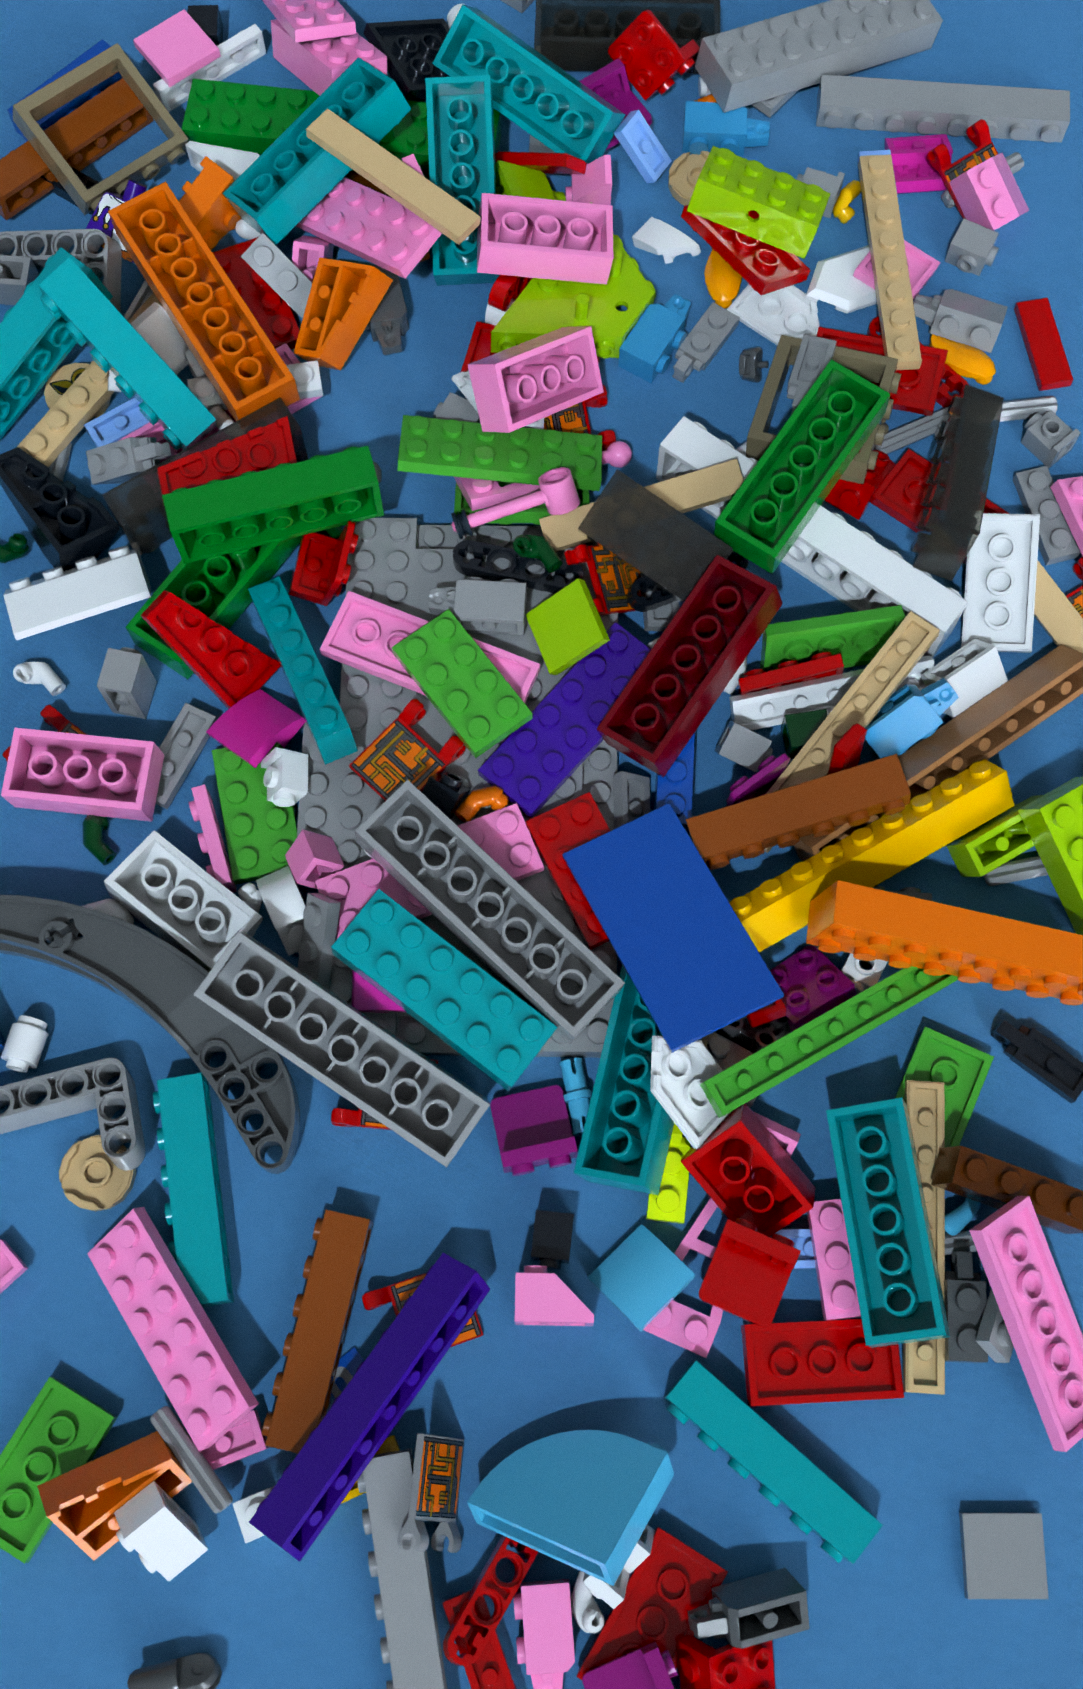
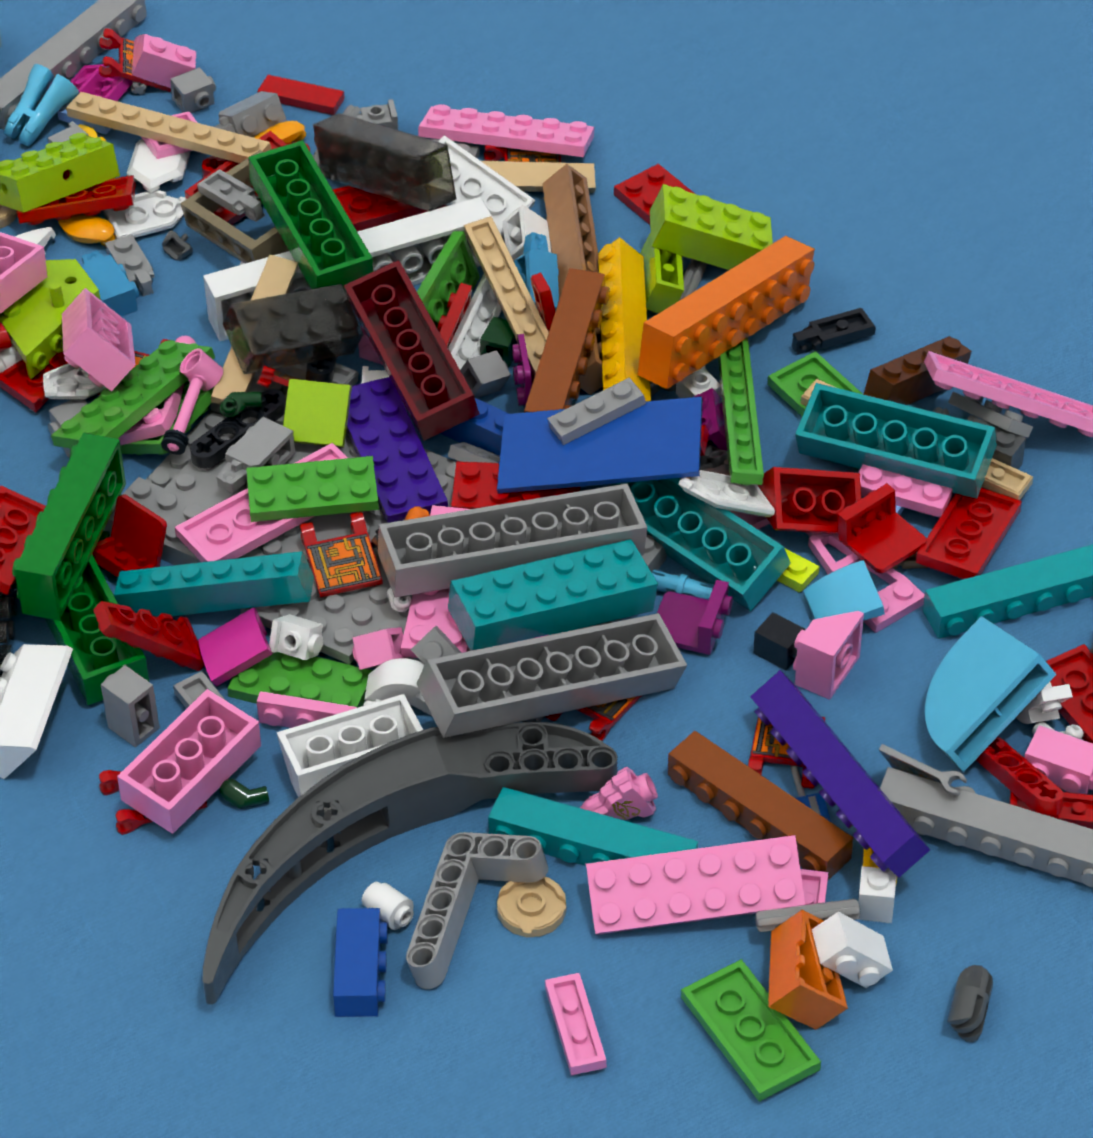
camera: 60 degrees left, 25 degrees down
(39, 674) = (62, 775): white arm -> none
(250, 1191) = (624, 796): none -> bright pink rock
(708, 896) = (596, 411): none -> light grey plate
(850, 131) = (59, 93): none -> medium azure piece

